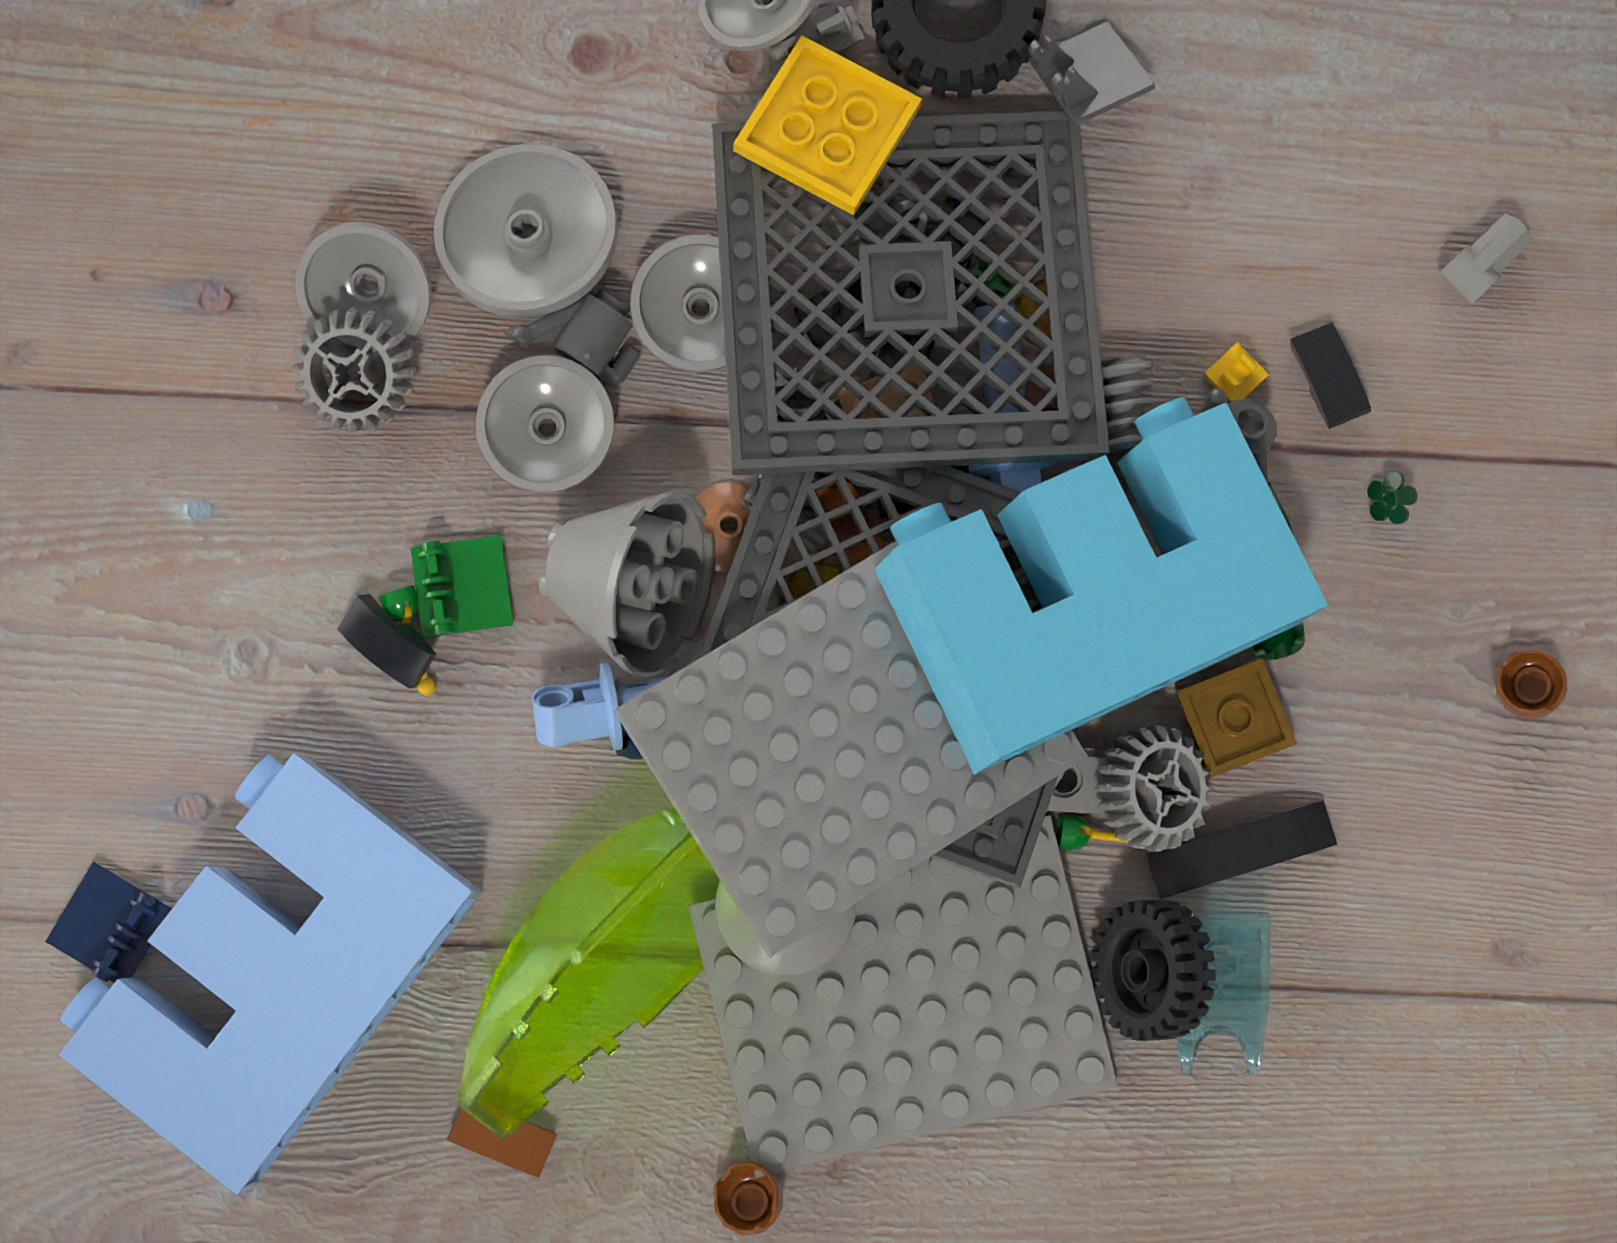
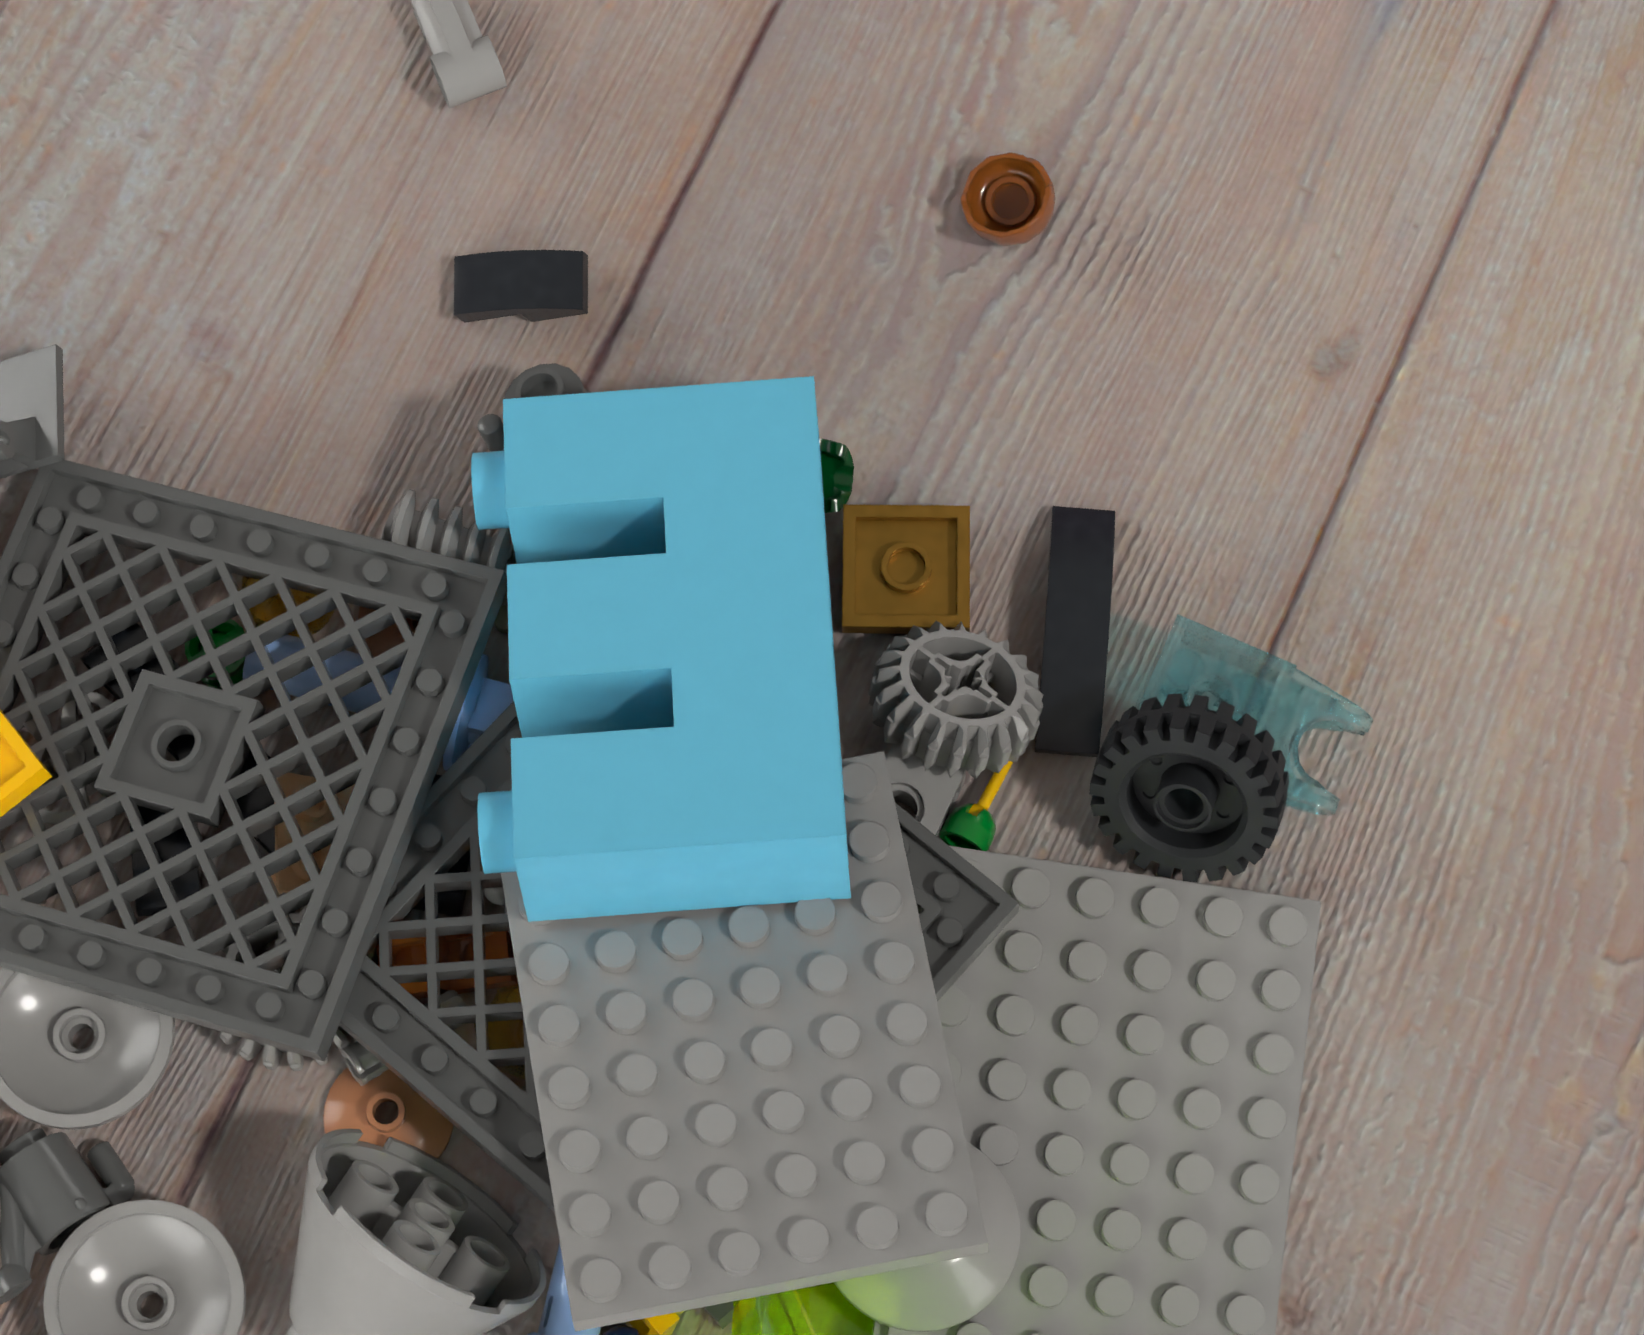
camera: 75 degrees left, 10 degrees down
(1236, 373) = (467, 396): yellow tile -> none
(1391, 498) = (707, 273): dark green plant -> none

